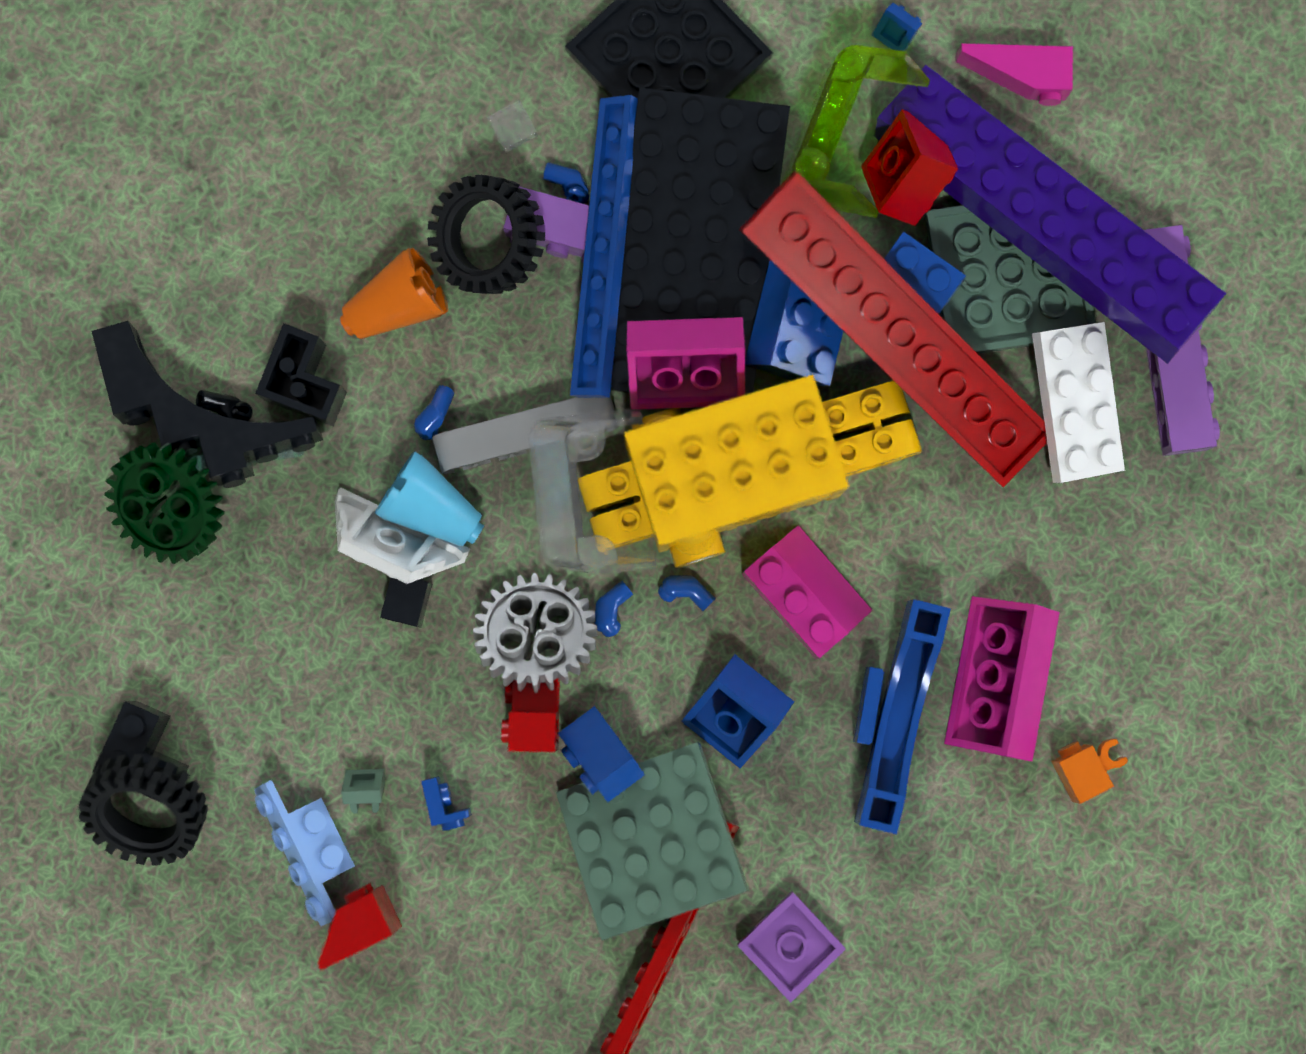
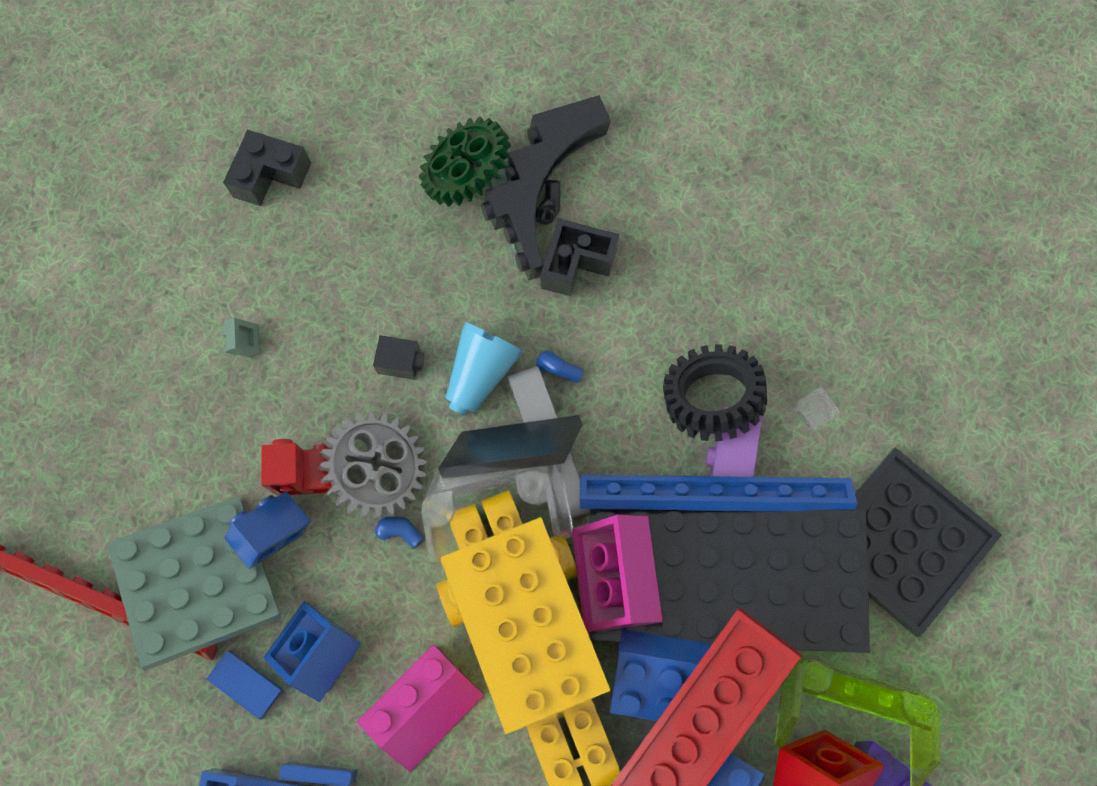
camera: 90 degrees right, 10 degrees down
(156, 783) = (236, 148): black tyre -> none
(310, 846) = (195, 303): light blue bracket -> none
(359, 924) = (124, 343): red slope -> none
(389, 546) = (438, 337): white wing -> none
(395, 298) = (653, 326): orange cone -> none
(437, 798) = (230, 397): blue bracket -> none
(532, 468) = (511, 447): none -> black tile
(570, 180) = (775, 463): blue arm -> none
(685, 586) = (422, 595): blue arm -> none
(768, 788) = (244, 684): none -> blue tile
(791, 946) = (102, 717): medium lavender plate -> none
(897, 28) = (964, 756): tile -> none

